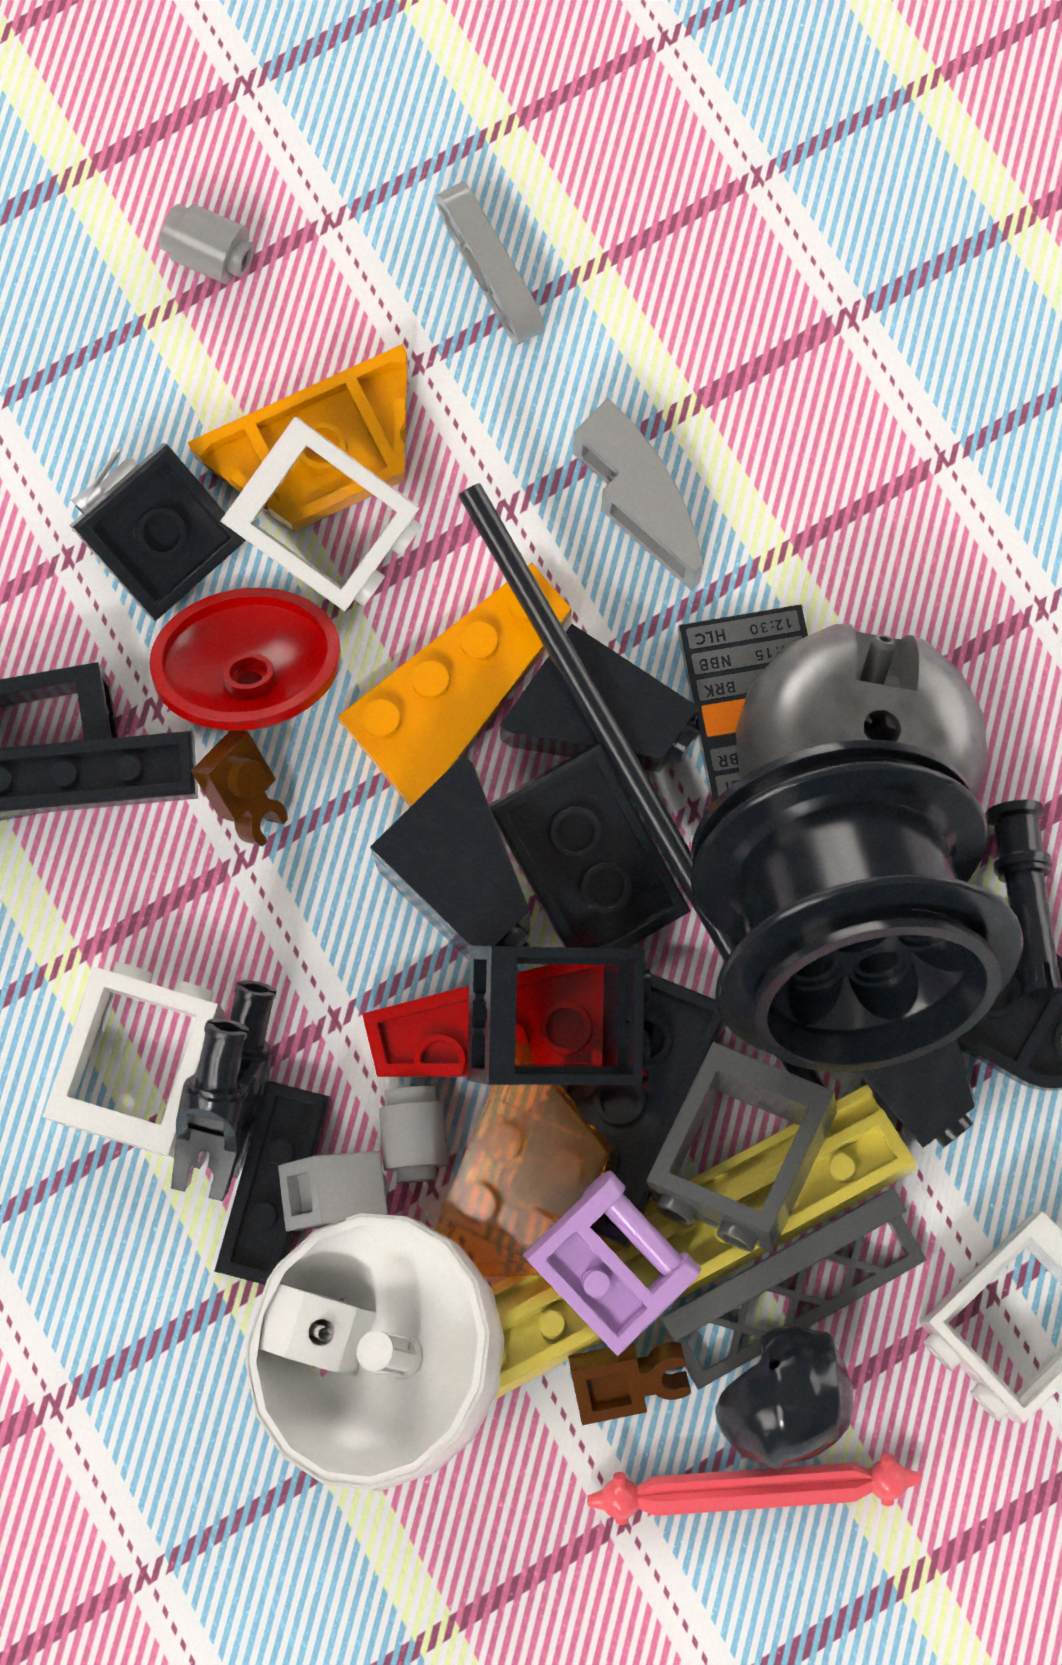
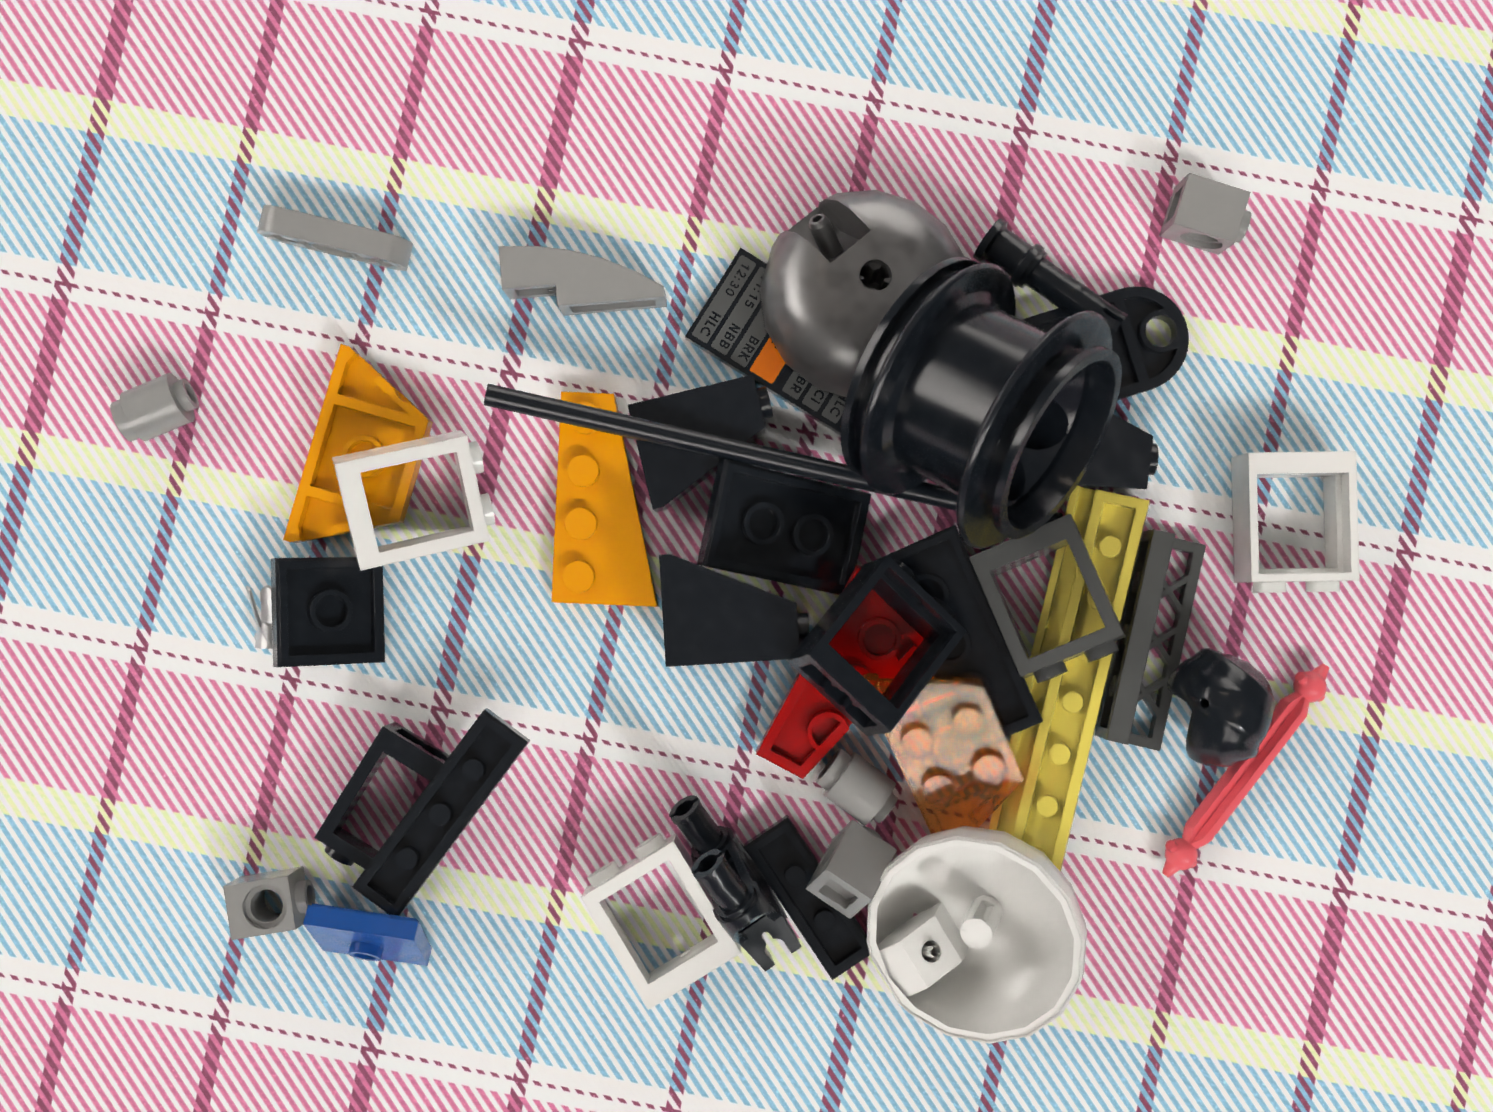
camera: 50 degrees left, 10 degrees up
(236, 783) = (541, 708): reddish brown plate -> none
(245, 659) = (444, 625): red dish -> none
(596, 1279) = (1053, 761): lavender plate -> none
(617, 1385) = (1115, 794): reddish brown plate -> none

